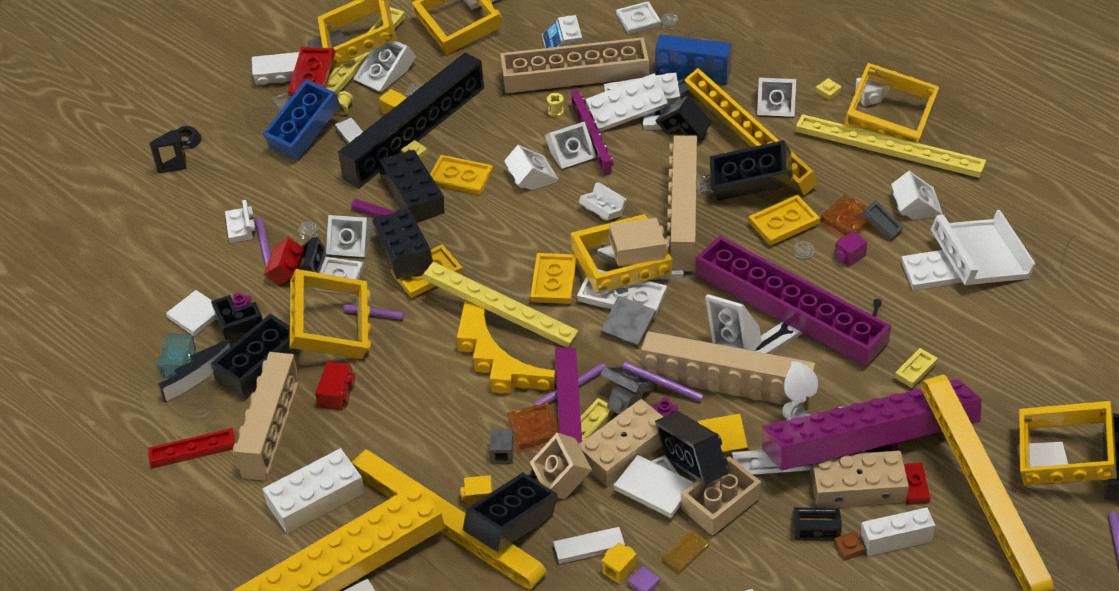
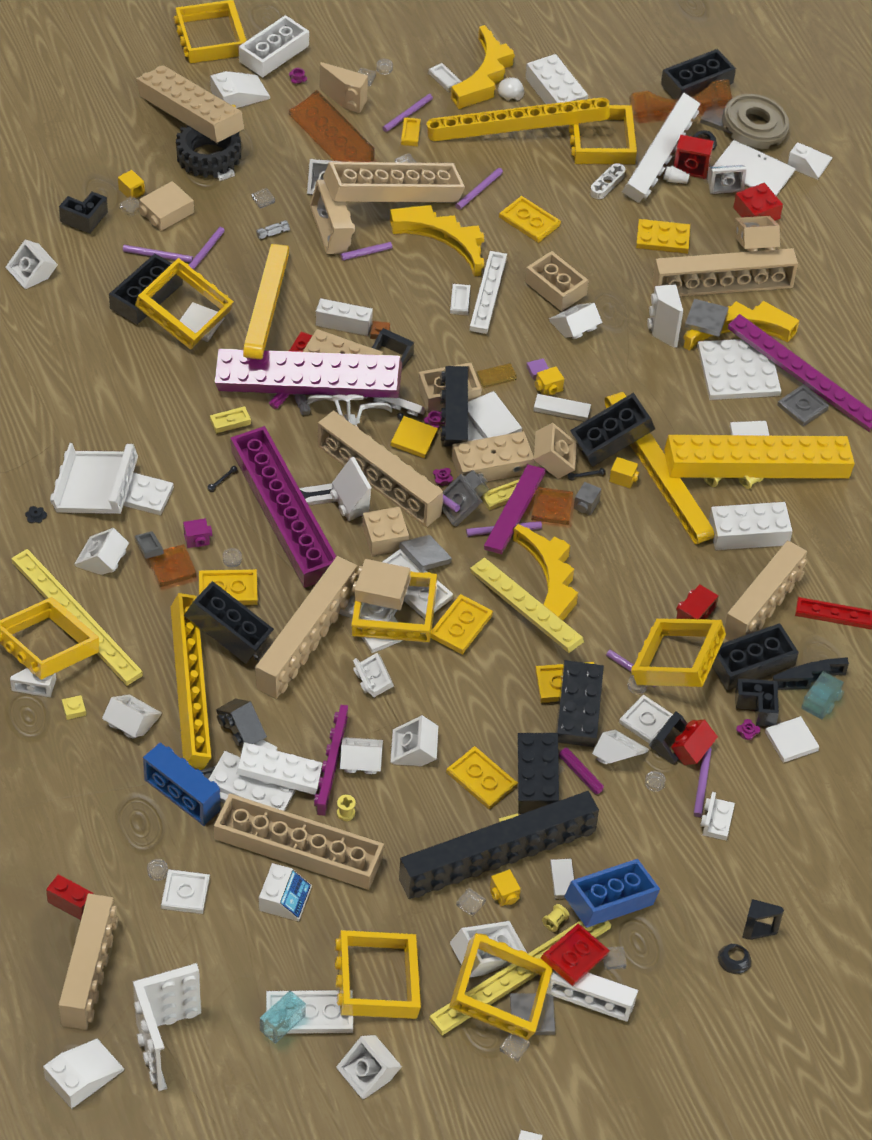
camera: 160 degrees left, 5 degrees up
(680, 319) = (384, 530): none -> tan brick
(1009, 212) = (35, 514): none -> black plant

